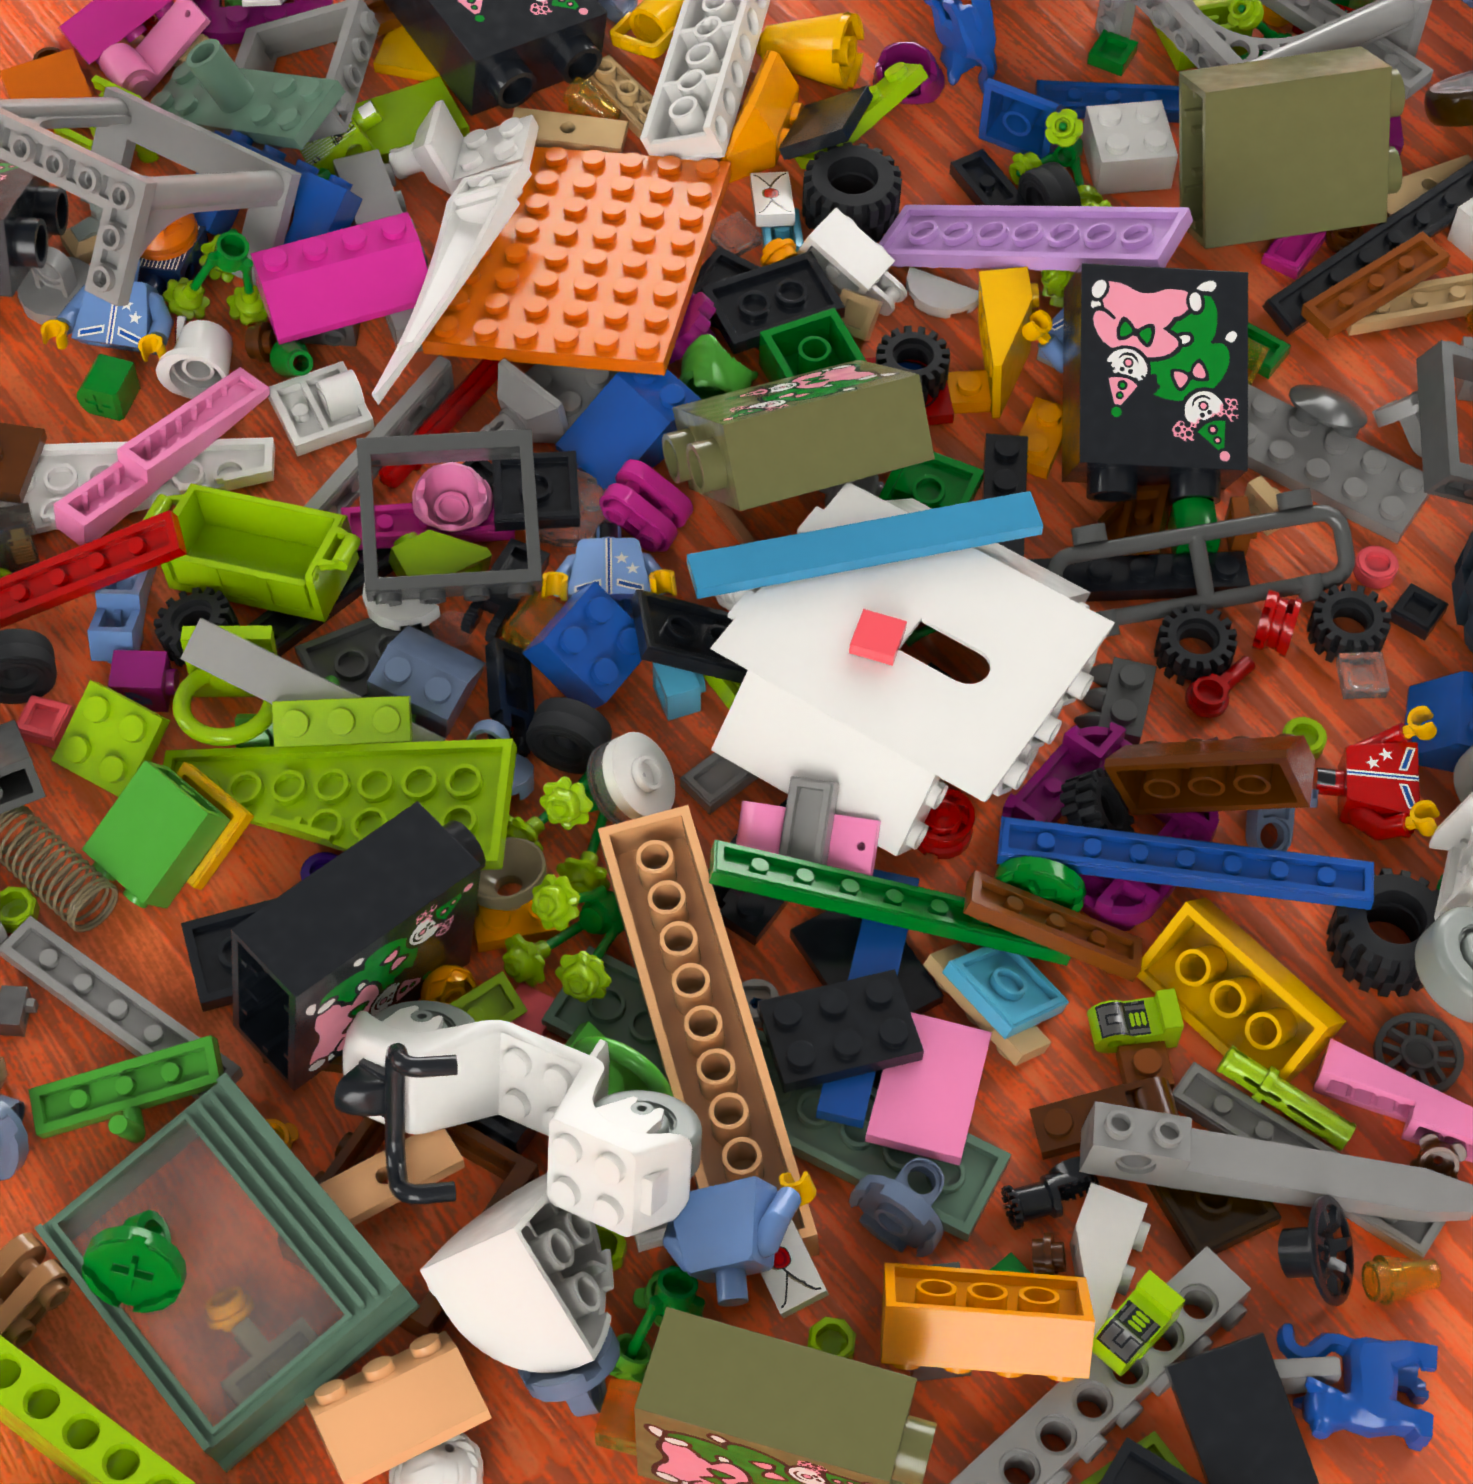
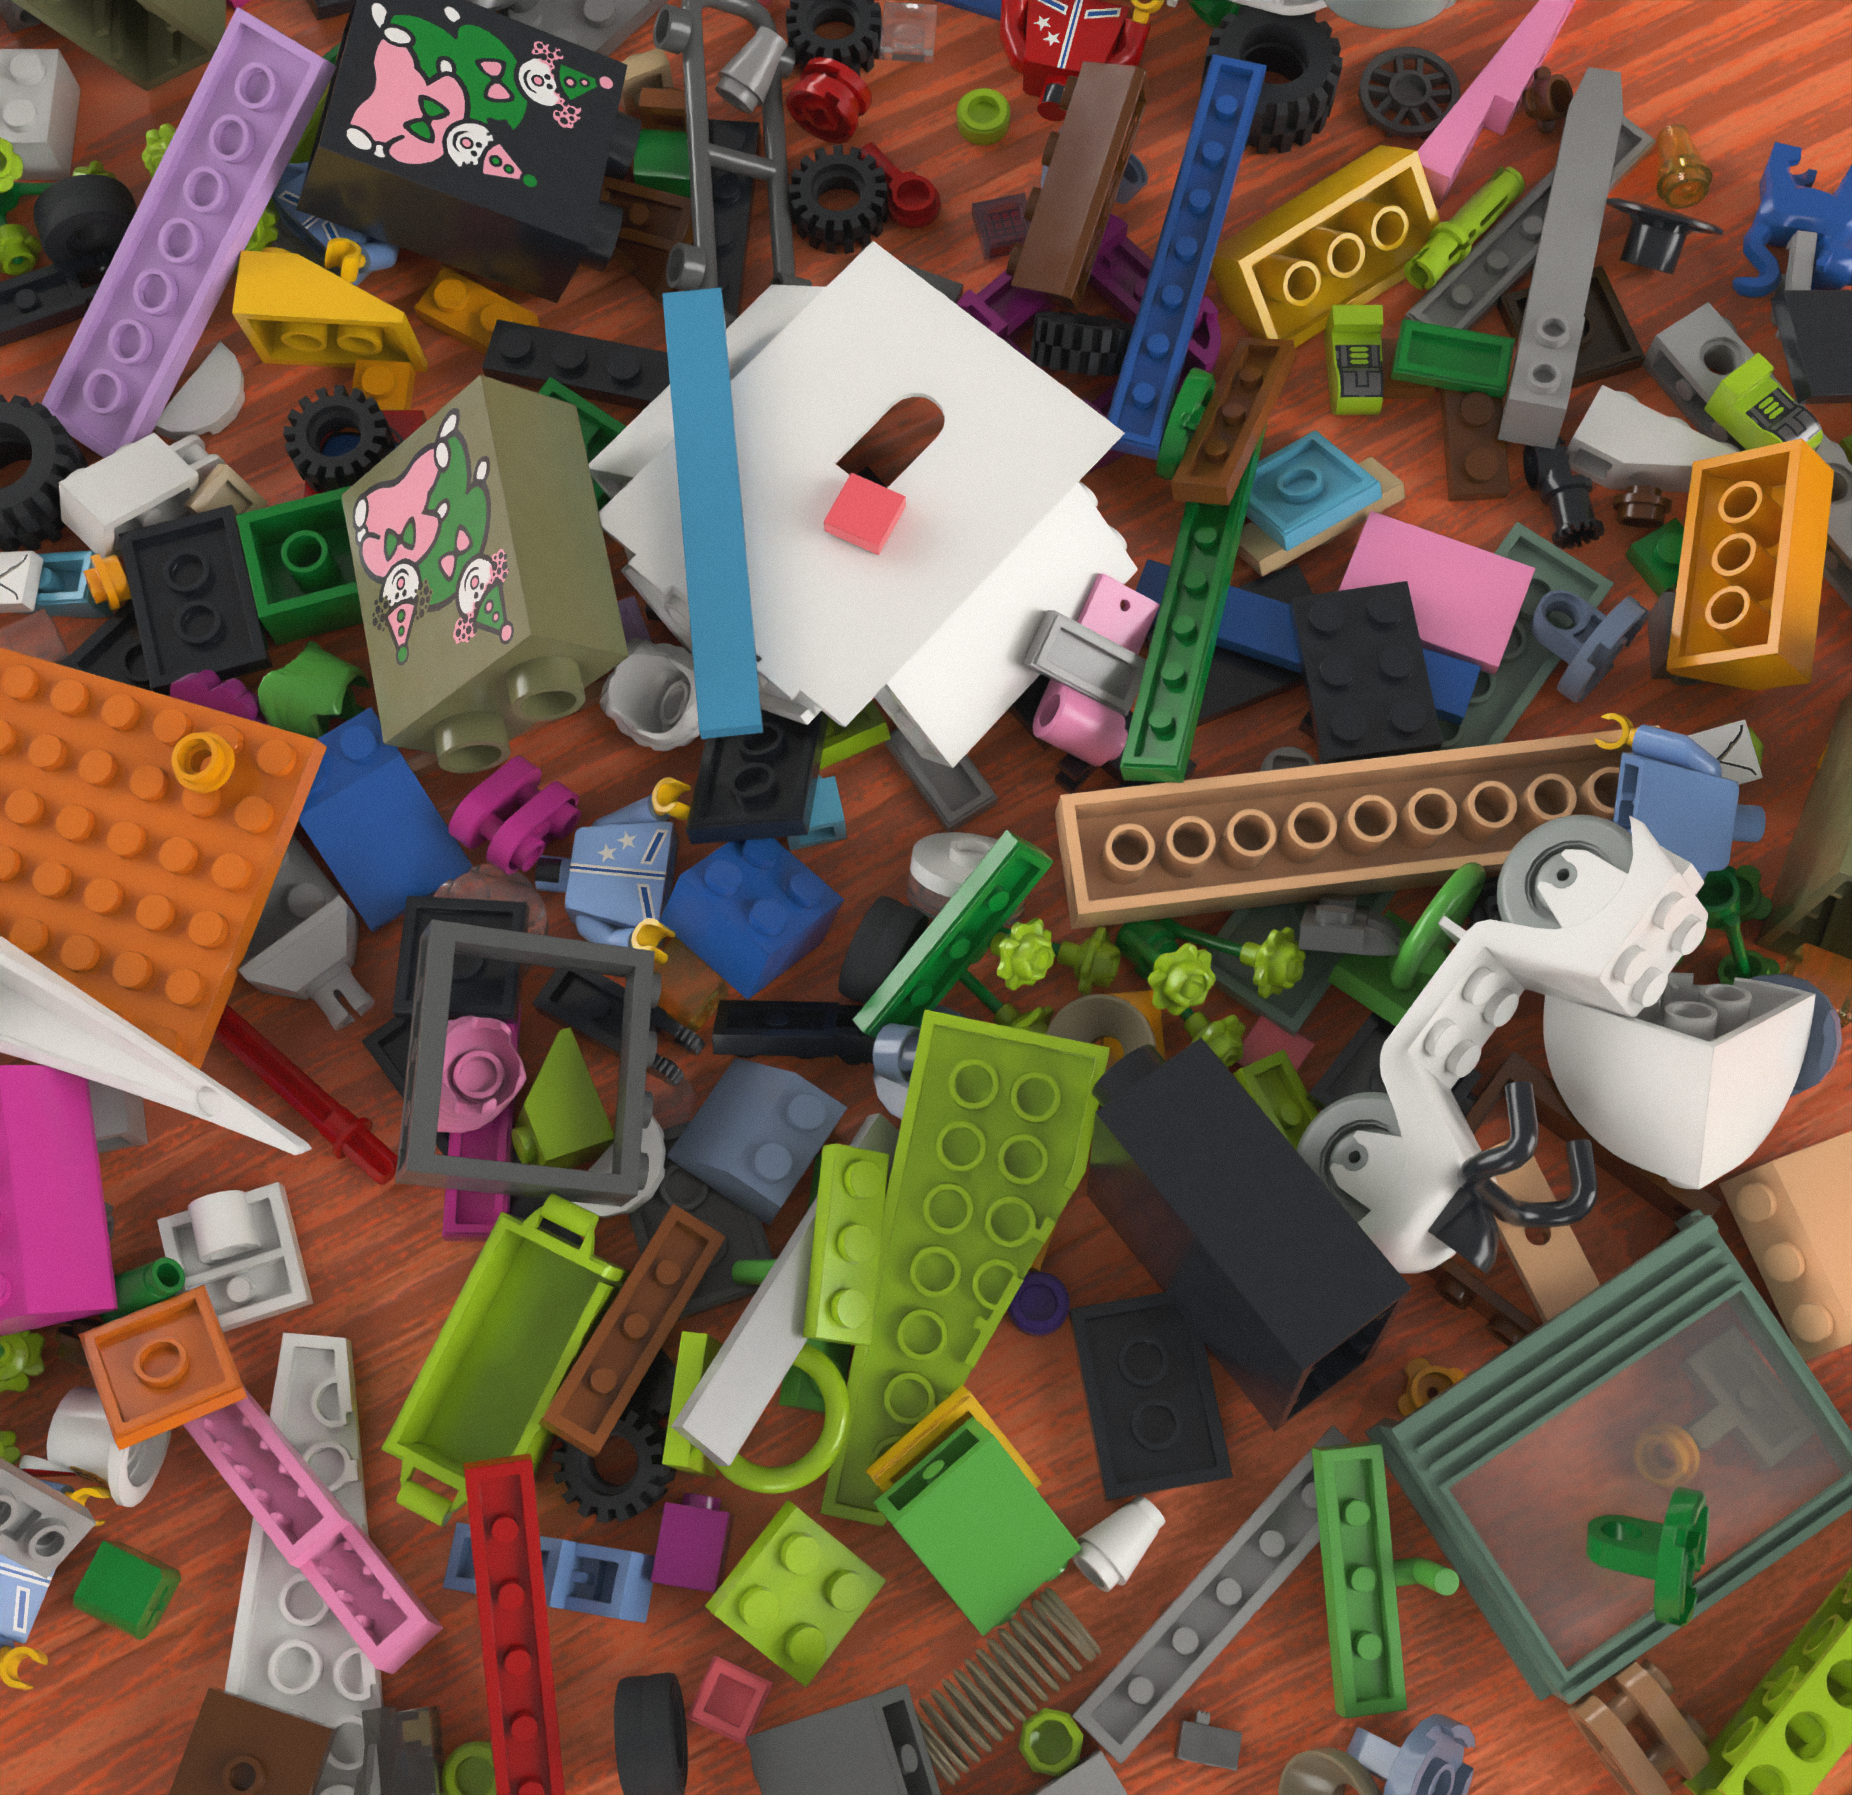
camera: 80 degrees left, 15 degrees up
(149, 935) = (1118, 1543): none -> white cone
(241, 368) = (161, 1367): none -> orange tile
(290, 615) = (632, 1331): none -> dark orange plate
(401, 420) = (353, 1195): light grey tile -> none
(577, 757) = (956, 935): none -> green tile
(612, 1011) = (1348, 928): none -> dark grey plate
(635, 302) = (190, 754): none -> light orange plate
(1144, 1072) = (1452, 358): none -> green tile
(1282, 564) = (750, 72): none -> light grey cone

